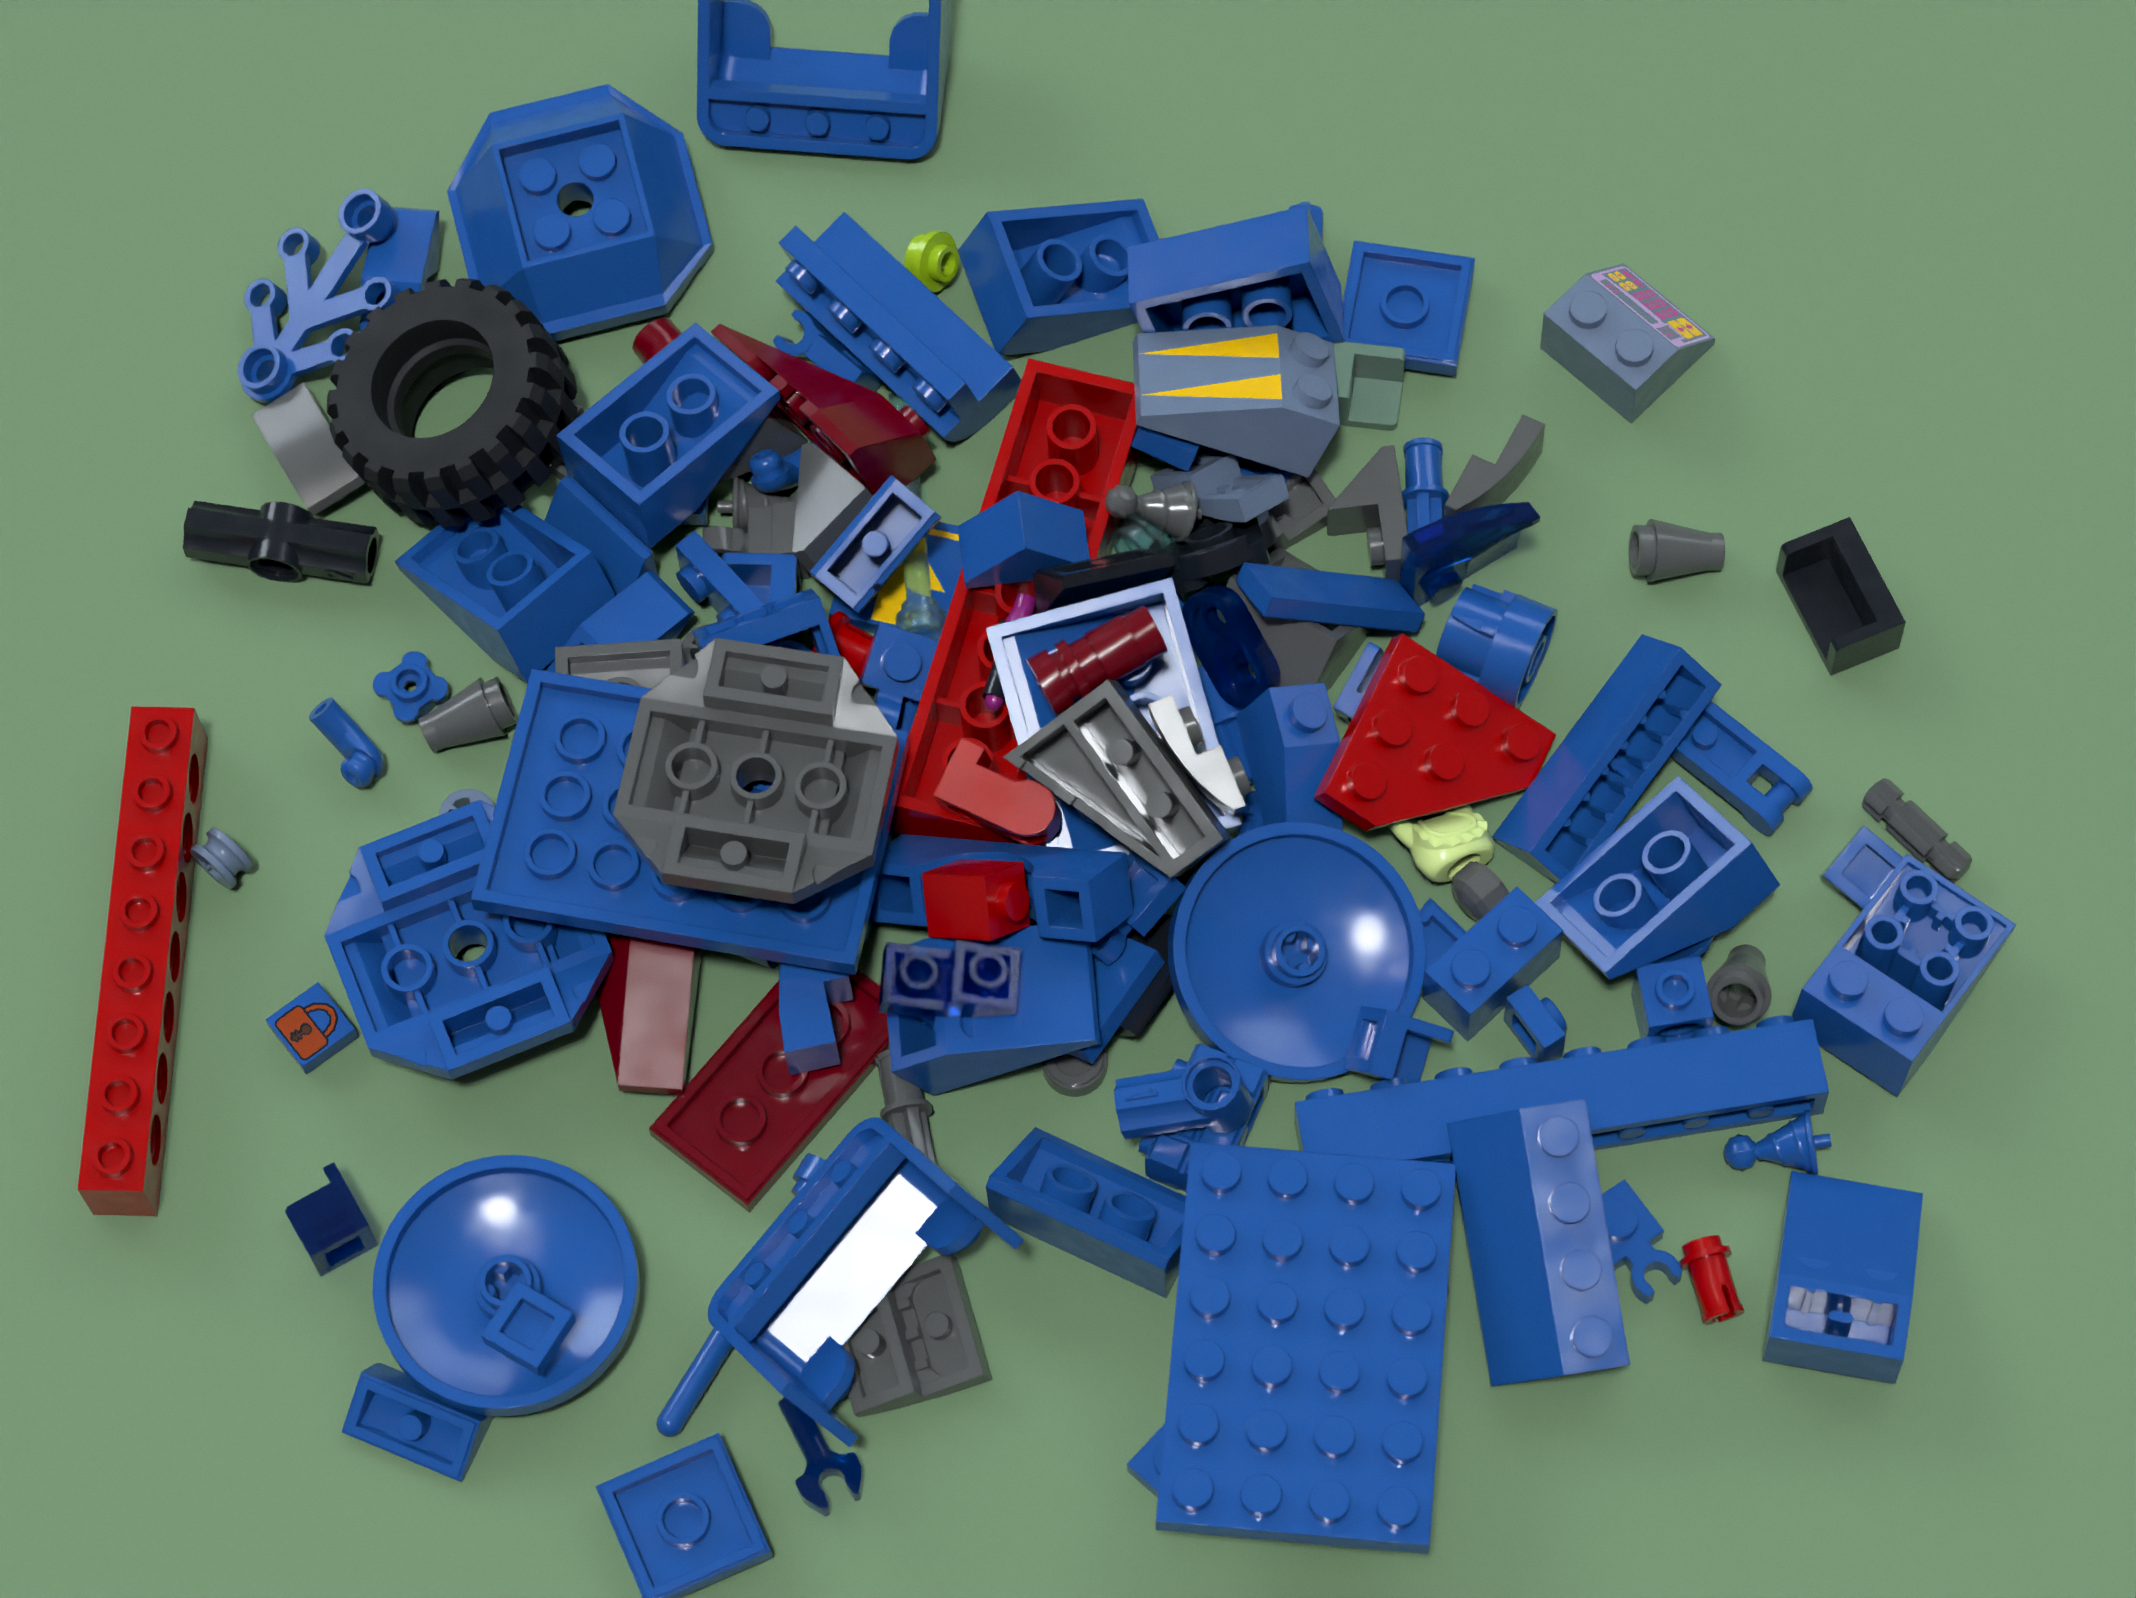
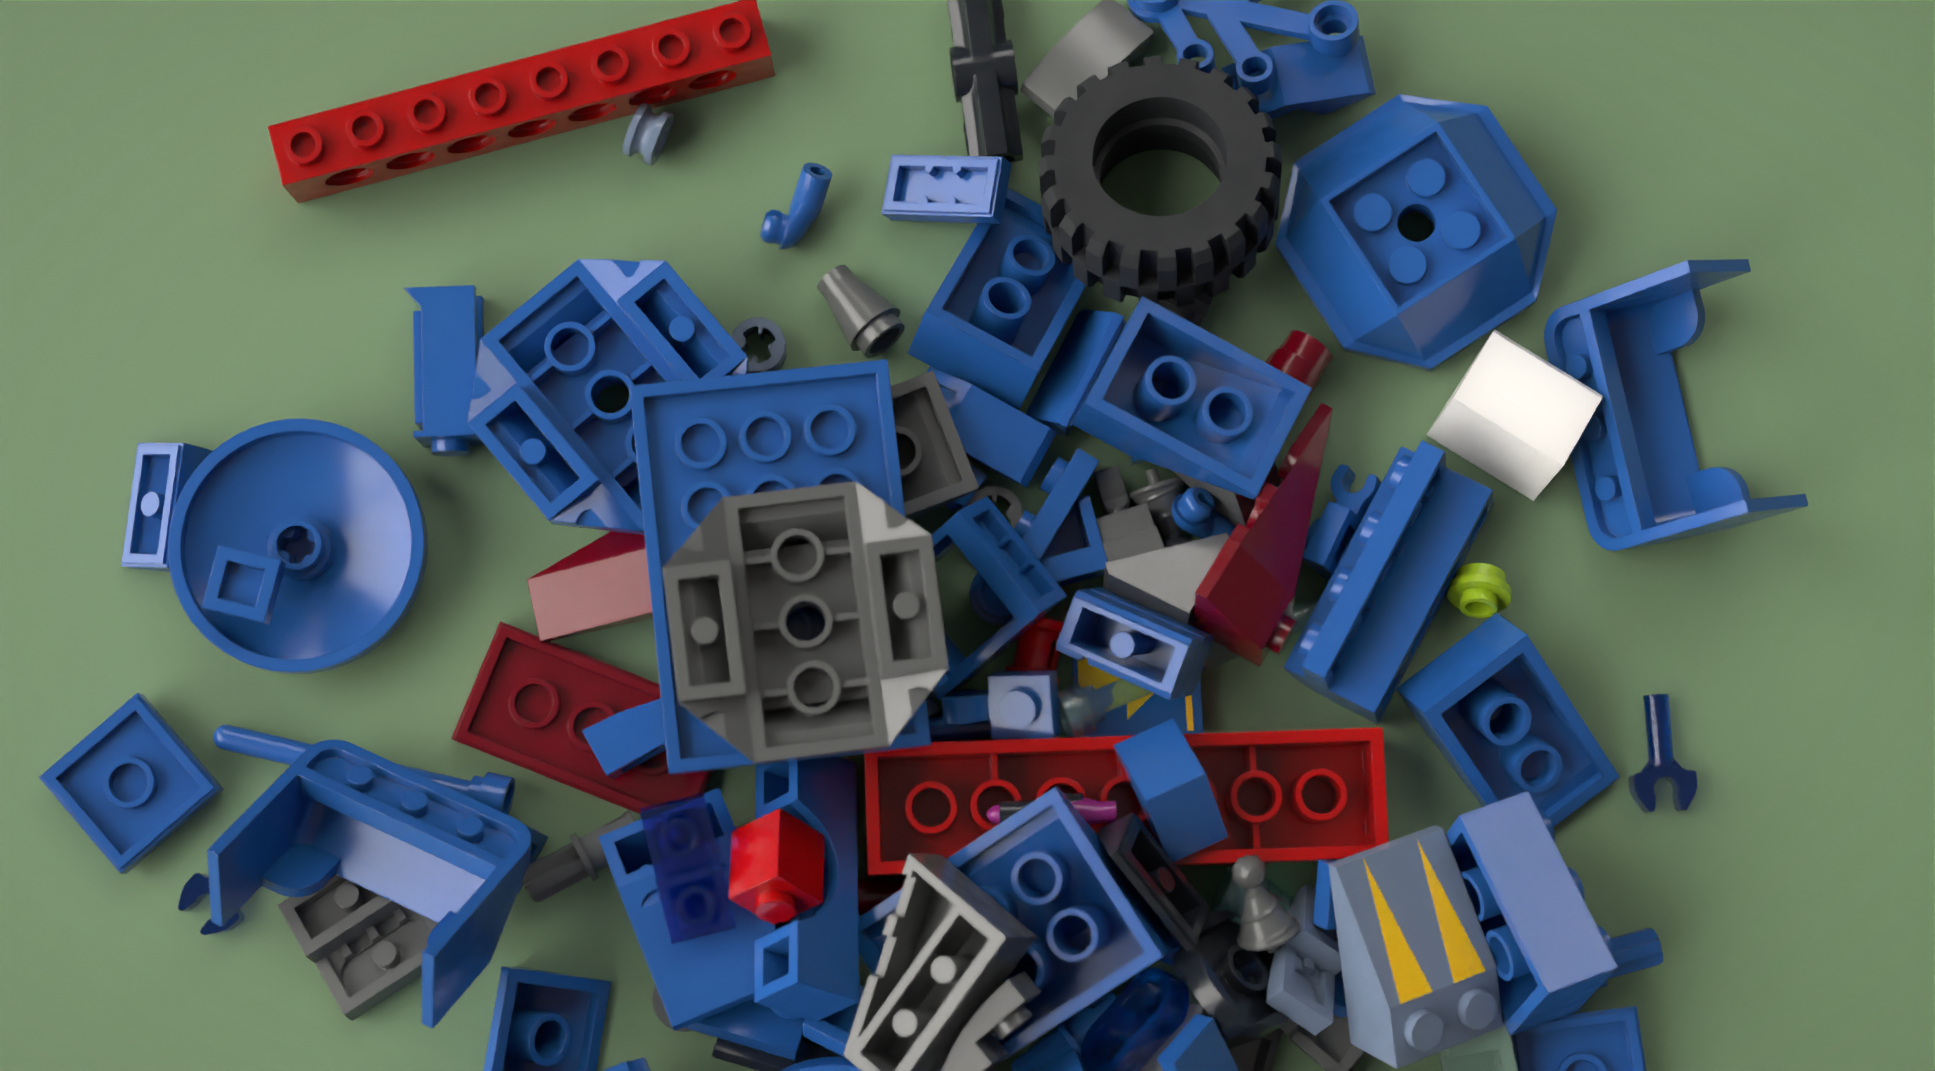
camera: 65 degrees right, 15 degrees up
(312, 1028) = (510, 274): tile -> none
(331, 1224) = (326, 362): clear blue panel -> none
(381, 1102) = (445, 365): none -> blue window
(382, 602) = (946, 188): none -> plate
(411, 704) = (879, 262): blue plate -> none
(783, 177) = (1515, 415): none -> white slope
(1012, 809) = (881, 849): red leg -> none
(1102, 654) = (1047, 909): dark red axle -> none
(1142, 162) = (1661, 760): none -> clear blue bar

